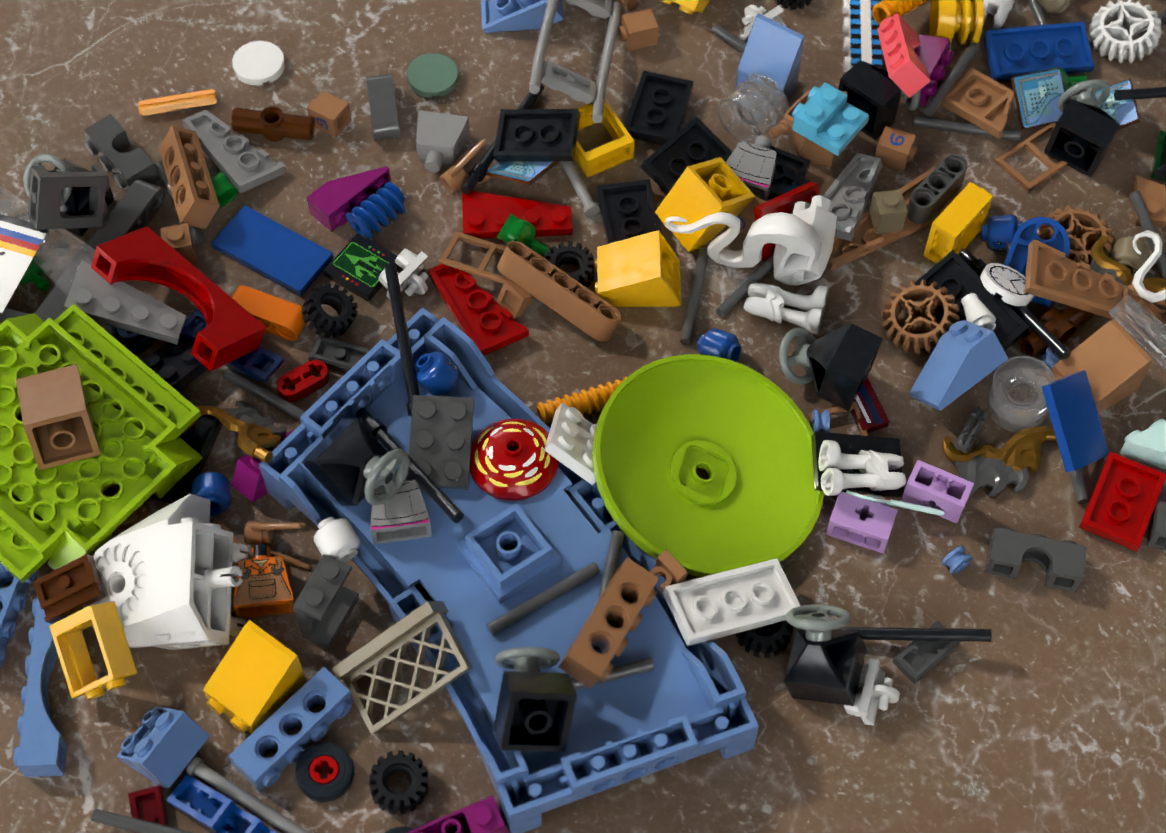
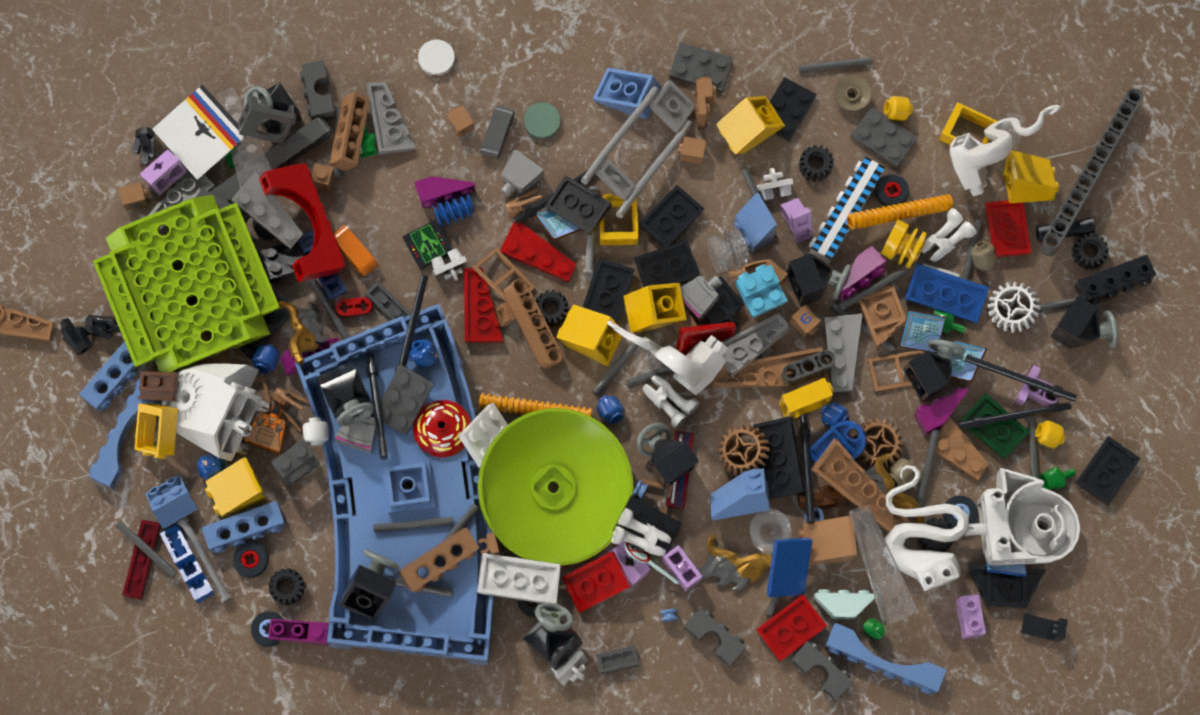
camera: 25 degrees right, 15 degrees up
(57, 417) = (193, 279): medium nougat slope -> none
(177, 102) = (371, 64): light orange axle -> none
(197, 668) = (210, 465): none -> blue head
(272, 250) = (379, 205): blue tile -> none
(273, 123) = (430, 118): reddish brown piece -> none
(320, 319) = (400, 265): black tyre -> none
(396, 640) = (321, 508): dark tan fence -> none
(521, 231) = (532, 271): green piece -> none
(820, 46) = (798, 219): none -> lavender tile
(837, 559) = (596, 581): none -> red plate
(888, 211) = (766, 369): dark tan brick -> none
(902, 63) = (833, 274): coral arch -> none
(923, 634) = (611, 645): black bar -> none
(952, 137) = (843, 341): none -> light grey wing
(971, 430) = (729, 538): dark grey axle -> none
(977, 312) = (775, 470): white cone -> none
(1007, 283) = (805, 455): white tile -> none
(1120, 176) = (935, 415): none -> magenta slope

